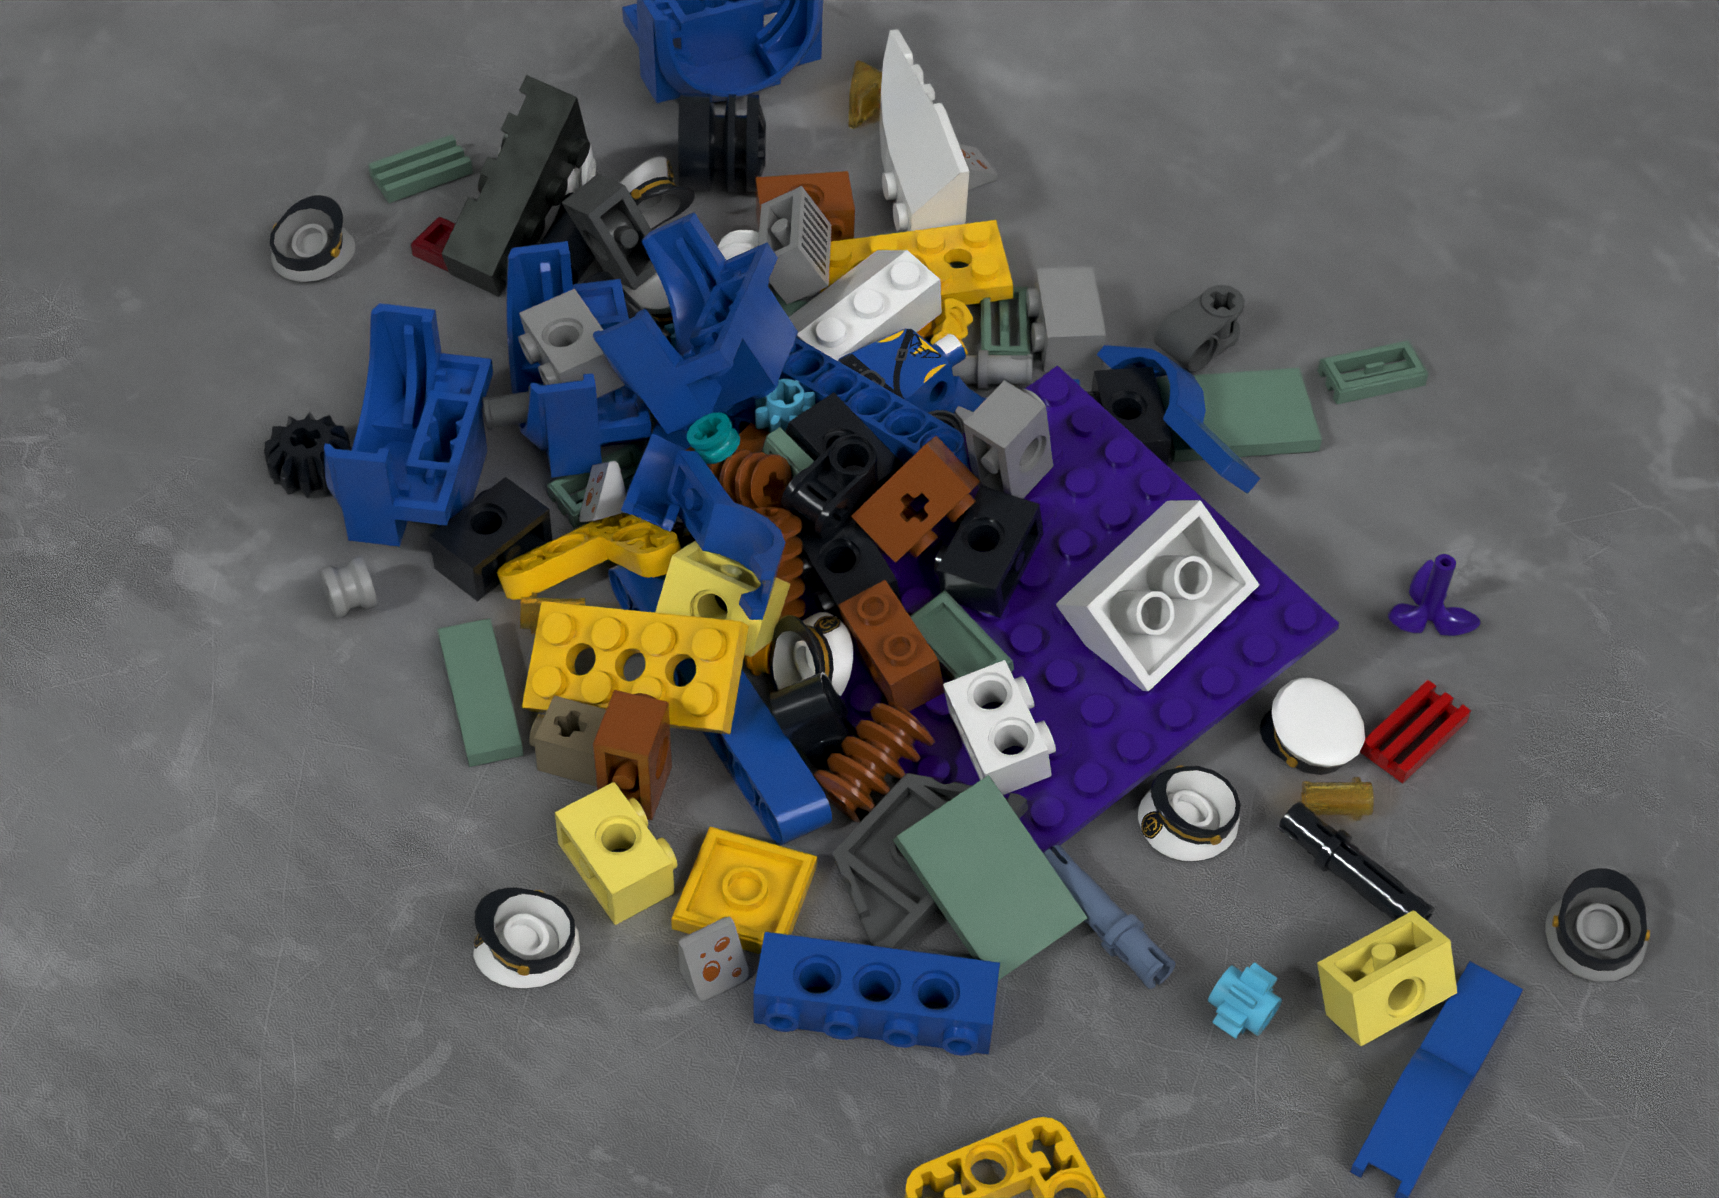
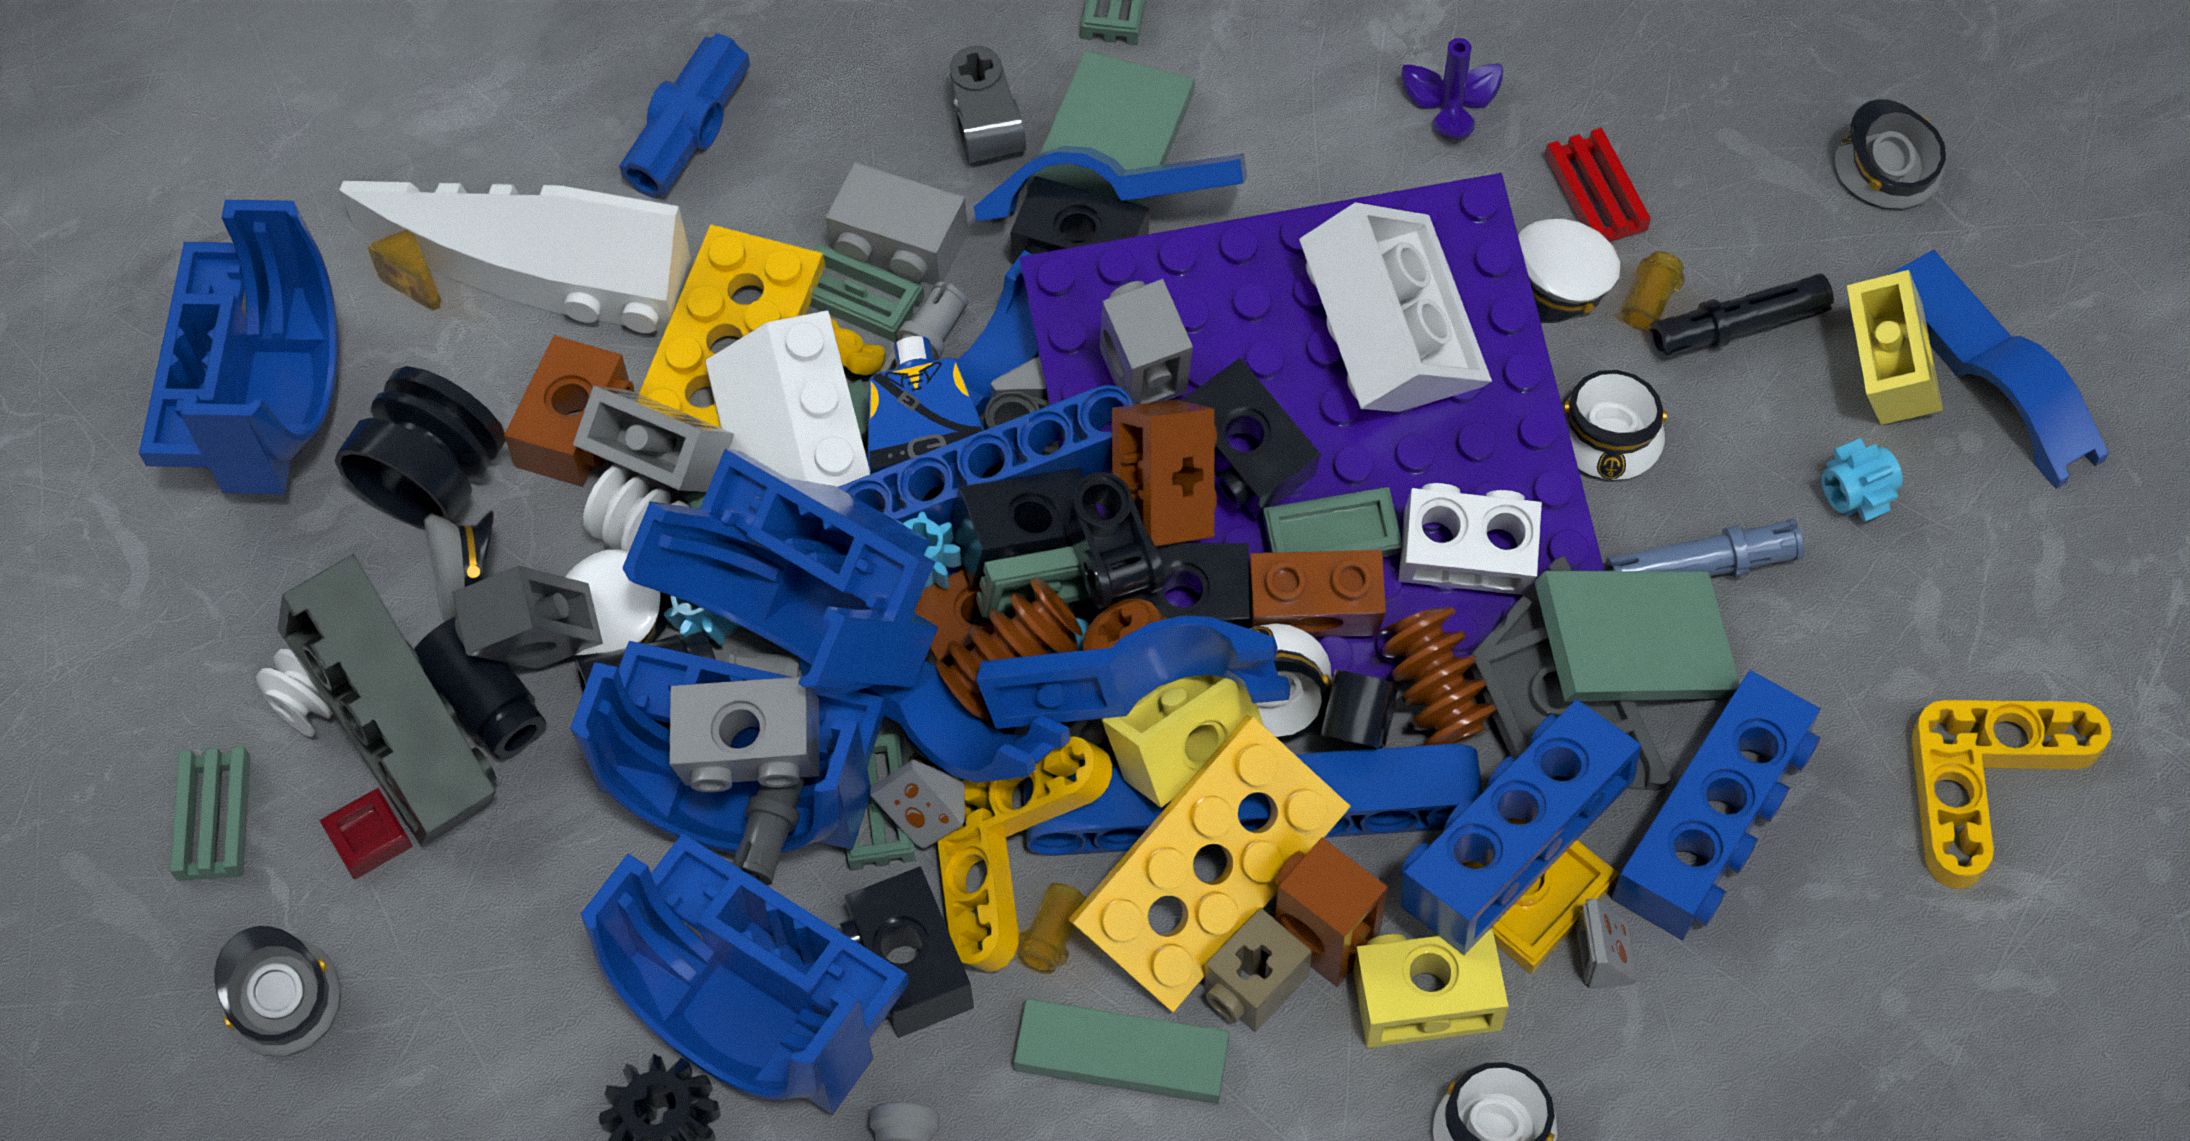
camera: 60 degrees left, 10 degrees up
(713, 437) = (950, 626): teal bush -> none
(762, 842) = (1467, 902): none -> blue brick
(1080, 178) = (684, 115): none -> blue piece

